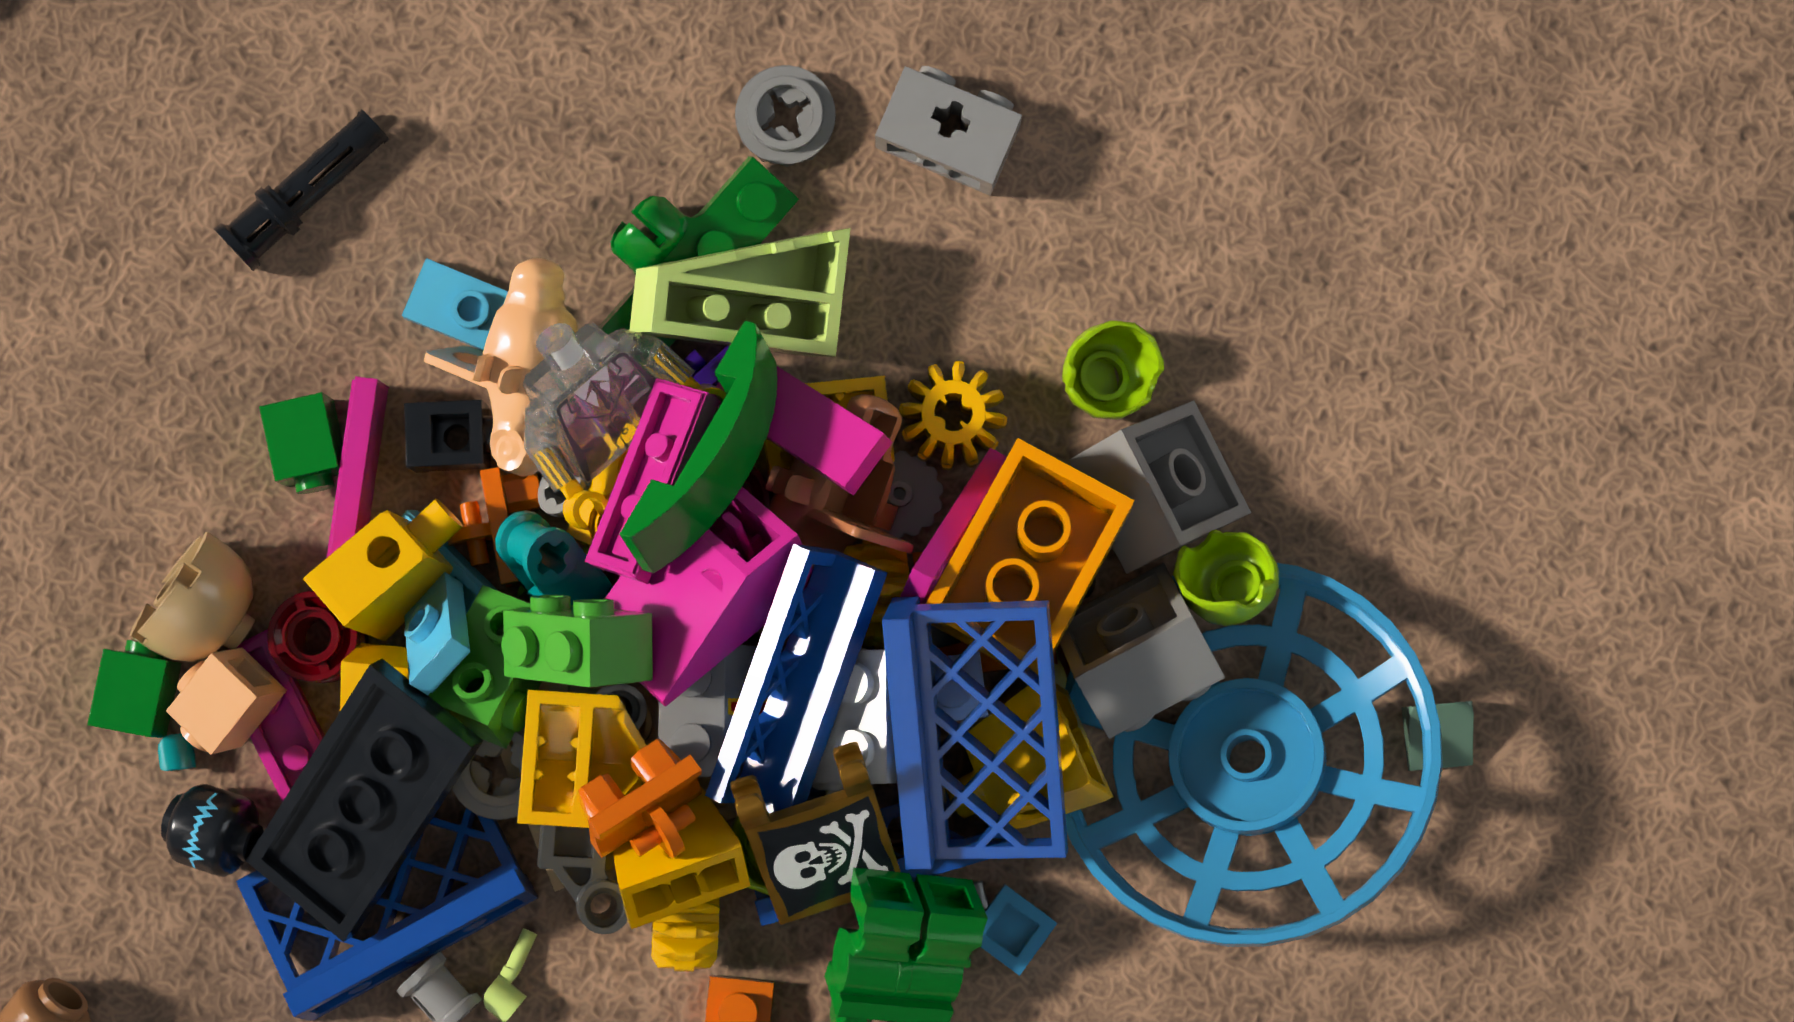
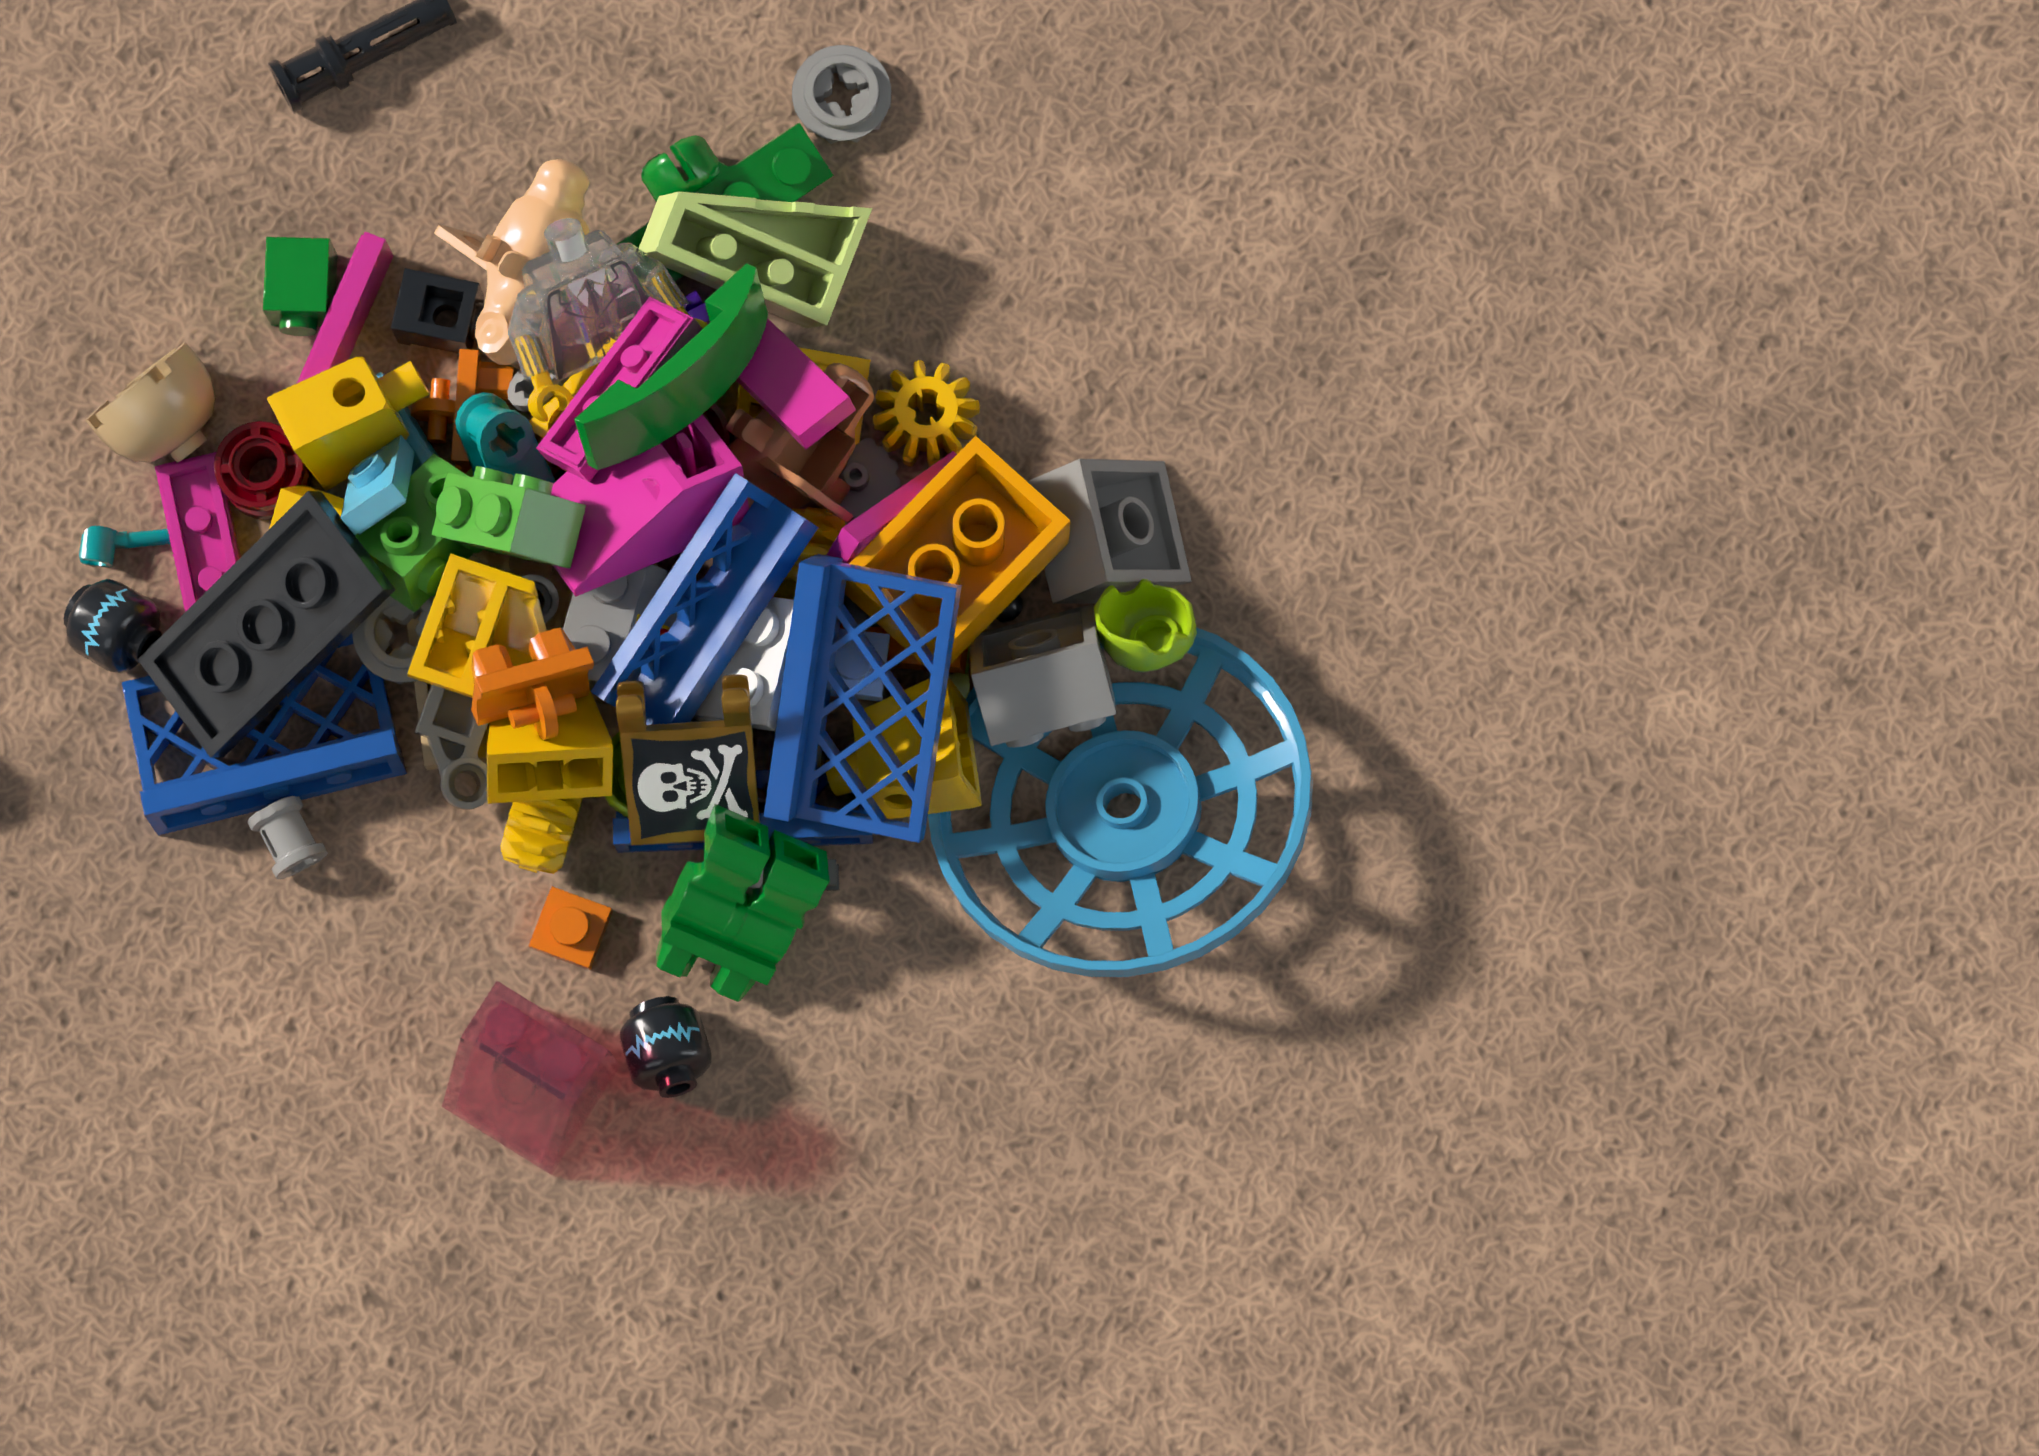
camera: 10 degrees right, 5 degrees down
(134, 691) = (74, 477): green brick -> none
(224, 700) = (158, 504): light nougat brick -> none
(454, 304) = (474, 190): medium azure plate -> none
(502, 996) = (345, 854): yellowish green hand -> none
(968, 156) = (1005, 175): light grey brick -> none
(1014, 929) = (854, 915): dark azure plate -> none
(1091, 373) = (1077, 395): lime hair -> none
(1456, 730) = (1325, 838): sand green slope -> none

